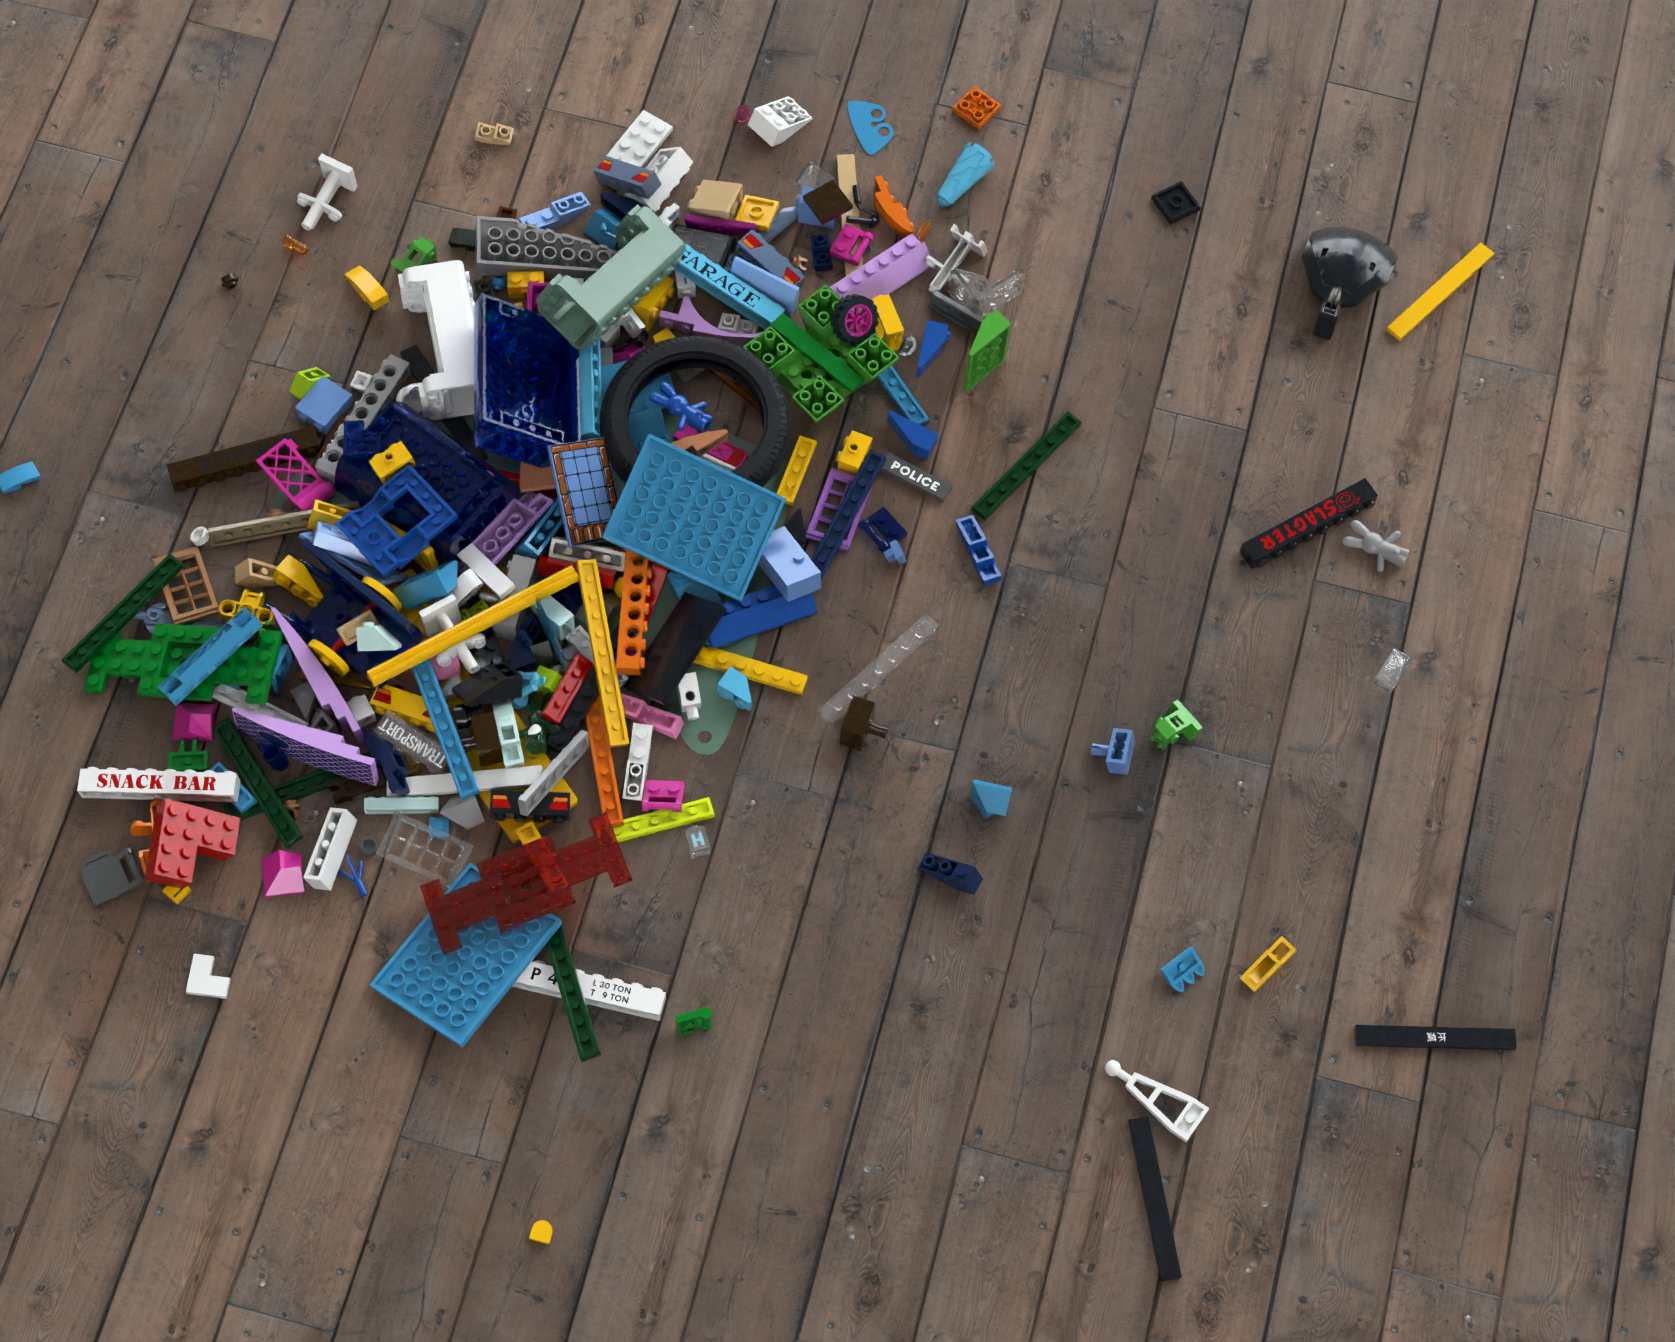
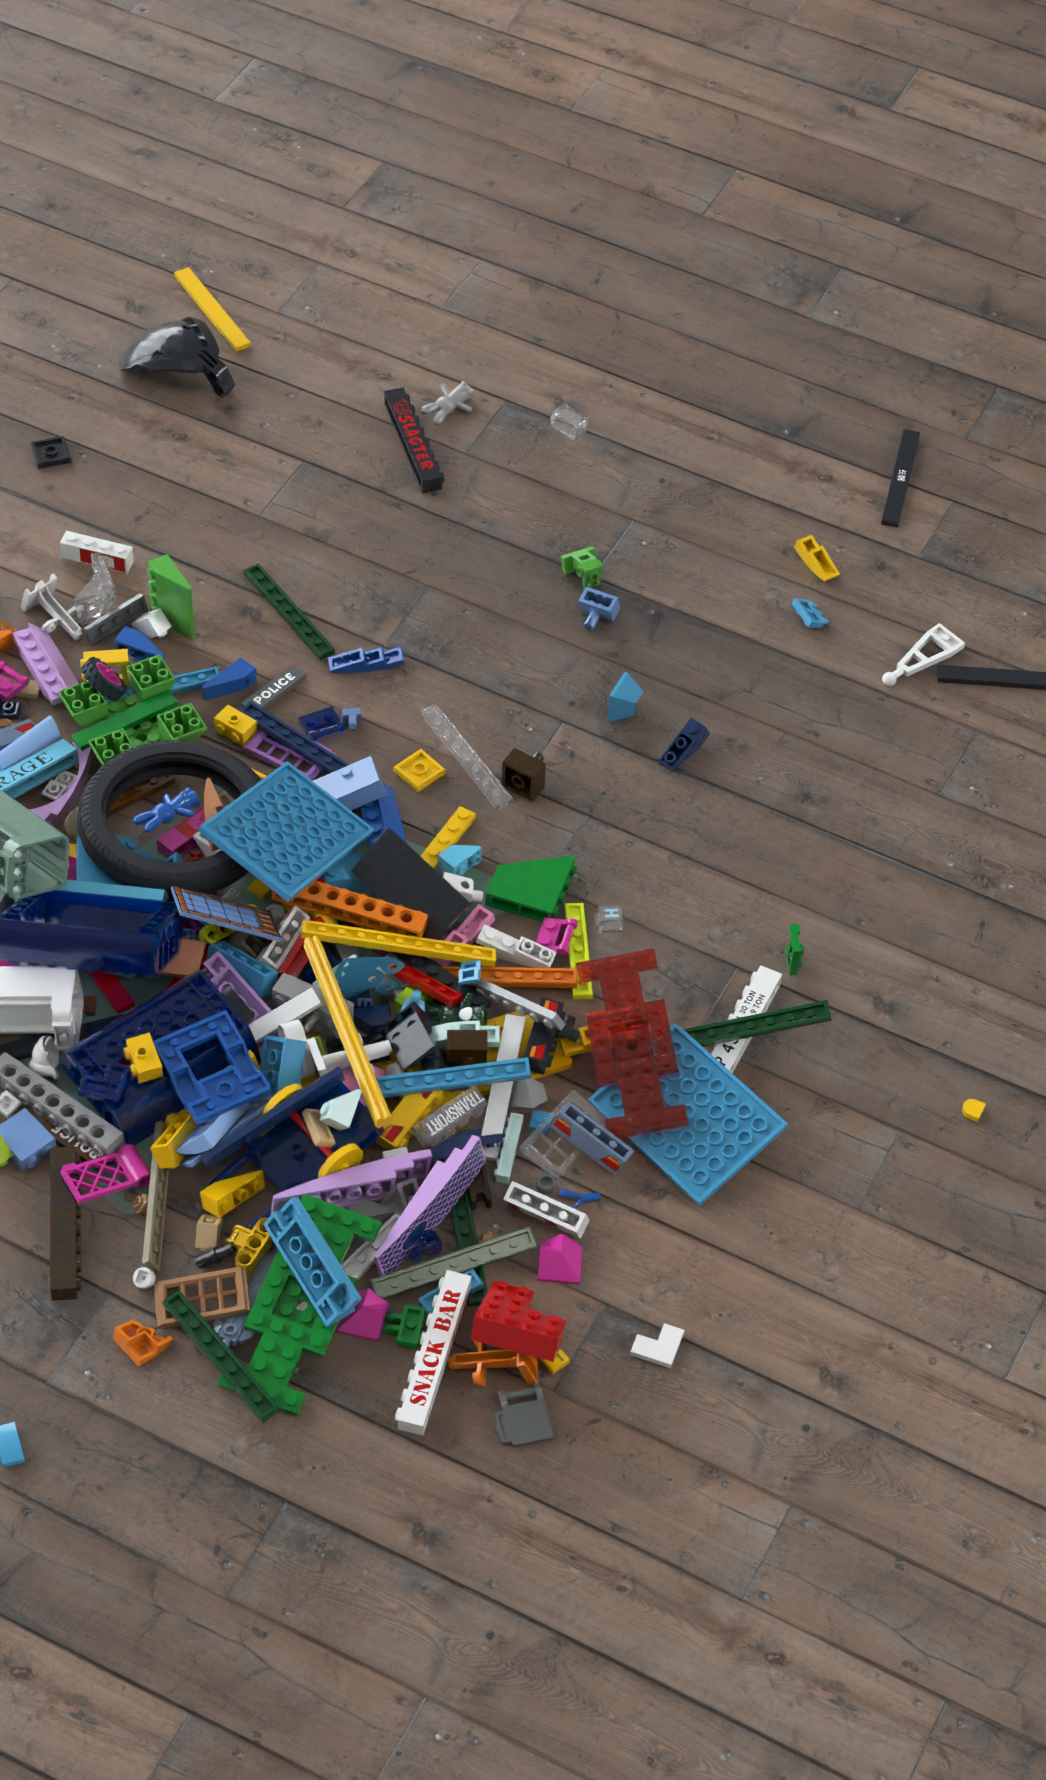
camera: 75 degrees left, 15 degrees down
(135, 550) = (140, 1341): none -> orange slope
(228, 585) = (216, 1255): none -> black pin
(414, 872) = (592, 1138): none -> sand blue brick
(493, 525) = (237, 1003): none -> black slope
(531, 826) = (568, 1030): none -> black brick
(583, 725) = (470, 972): none -> dark azure slope
(719, 763) = (531, 887): none -> green slope
(848, 630) = (419, 770): none -> yellow tile
(962, 349) = (152, 624): none -> white slope
(1045, 276) = (82, 547): none -> white brick

